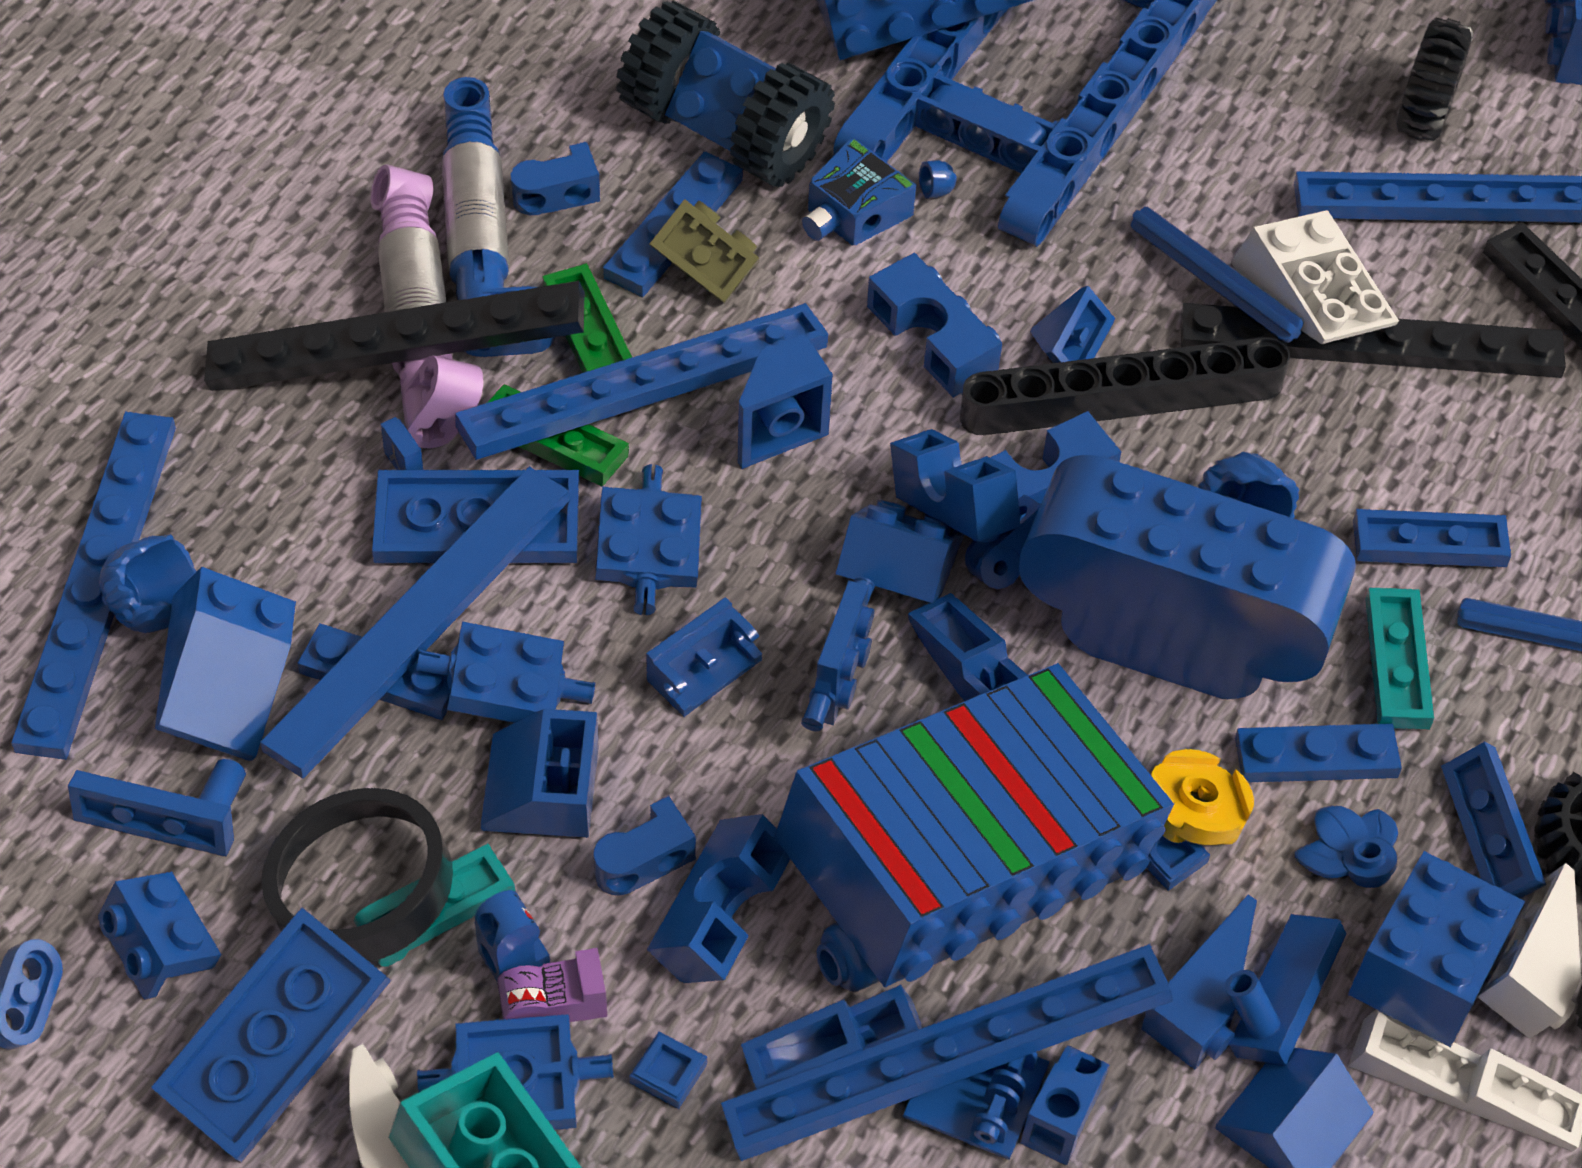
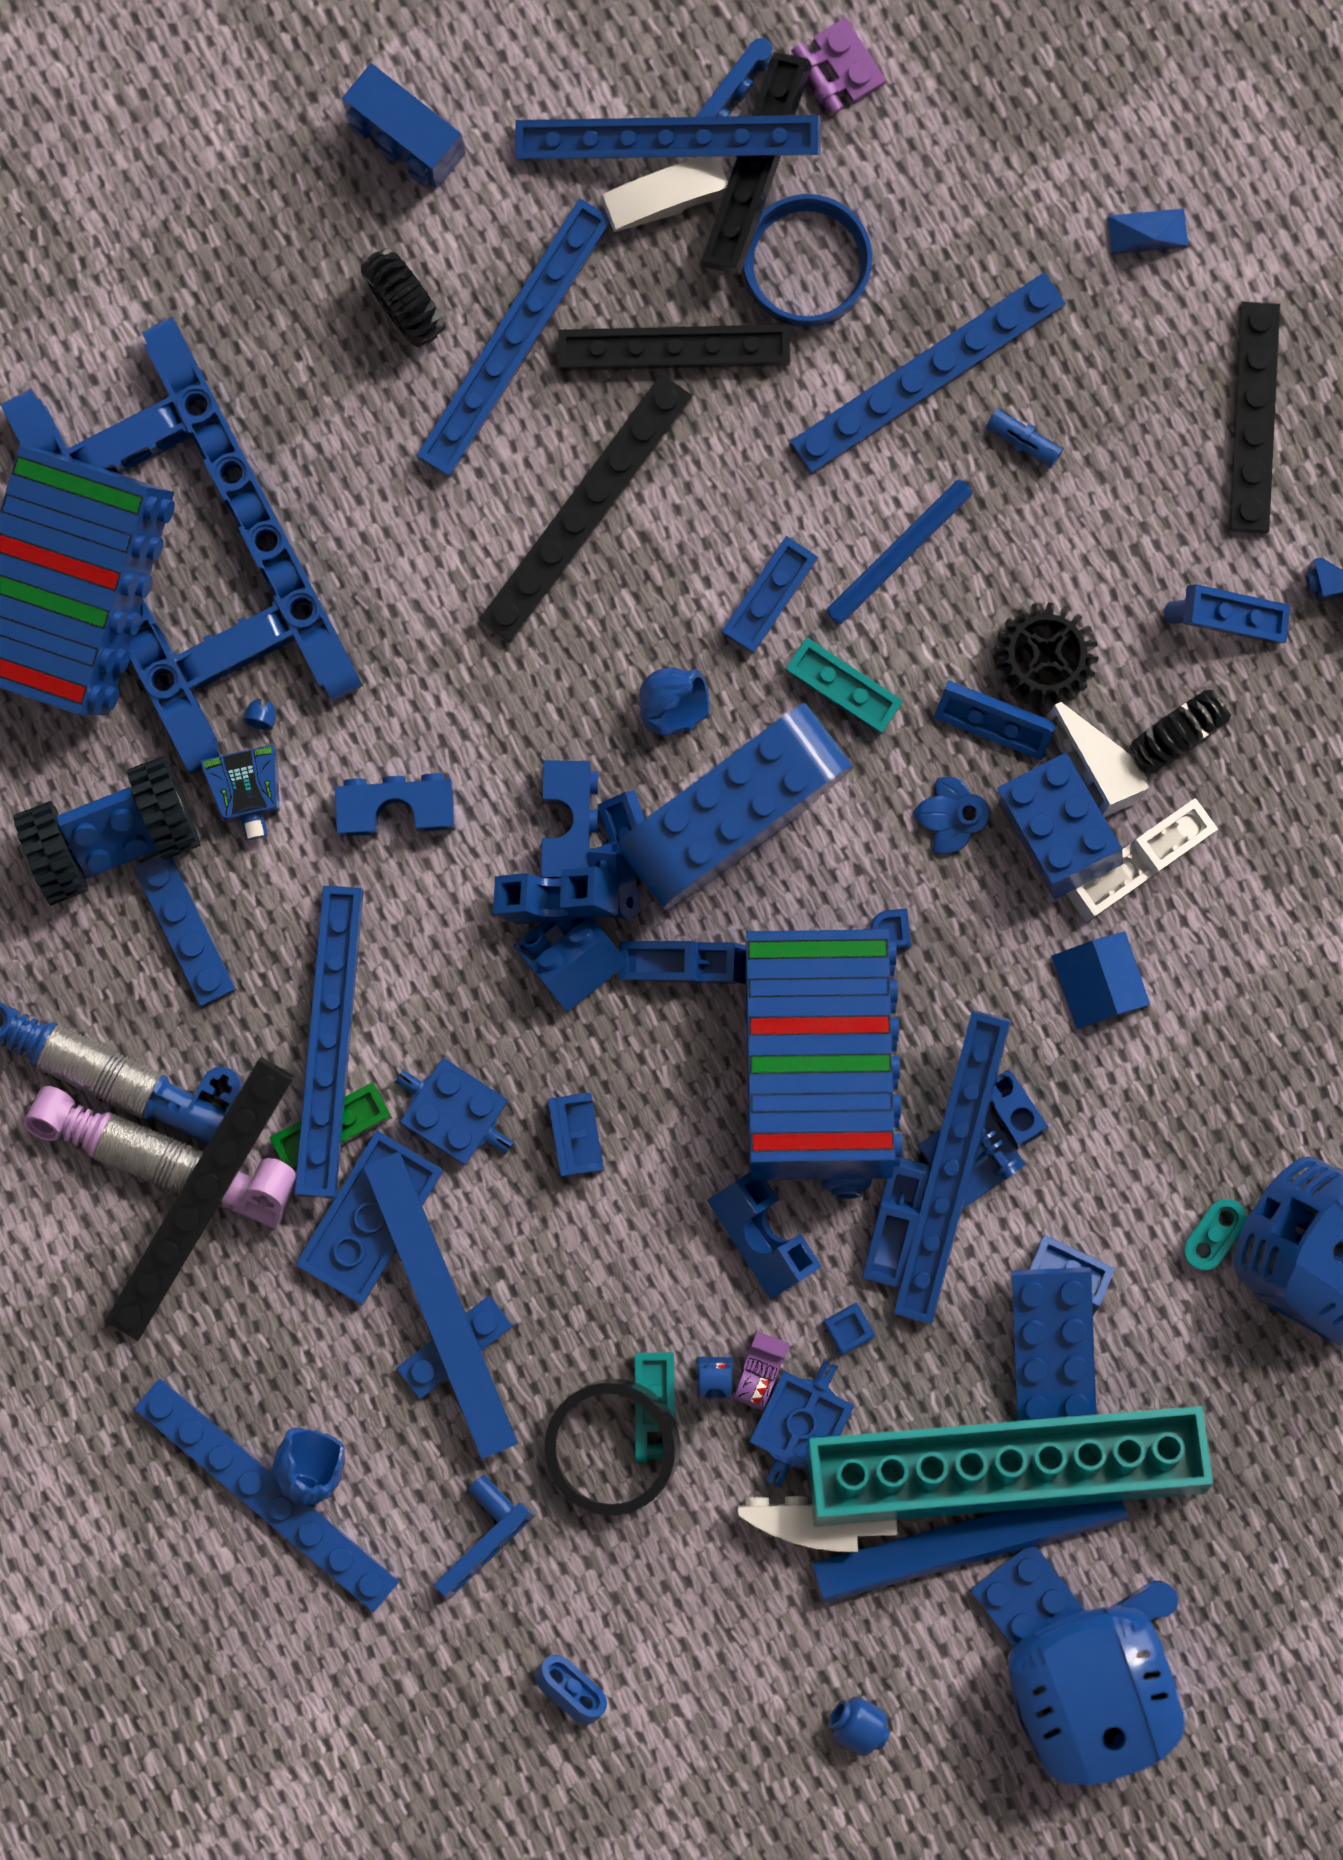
camera: 55 degrees left, 30 degrees up
(156, 931) = (572, 1587): blue bracket -> none
(223, 662) = (404, 1452): slope -> none
(271, 1034) = (697, 1556): blue plate -> none
(400, 446) = (278, 1238): blue tile -> none
(504, 673) = (514, 1271): blue plate -> none
(543, 775) = (605, 1293): blue slope -> none
(556, 182) = (102, 995): blue leg -> none
(601, 340) = (245, 1045): green plate -> none
(646, 852) = (697, 1272): blue leg -> none
(705, 249) = (236, 926): olive bracket -> none
(784, 401) = (409, 959): blue slope -> none
(843, 651) = (628, 1037): blue plate -> none
(1074, 328) = (457, 715): blue slope -> none
(1124, 385) = (528, 692): black beam -> none
(1201, 1010) = (998, 979): blue slope -> none
(1217, 274) = (473, 582): blue axle -> none
(1227, 798) = (861, 871): yellow plate -> none
(1282, 999) = (1023, 928): blue piece -> none
(1315, 276) = (530, 523): white slope -> none
(1318, 753) = (876, 787): blue plate -> none

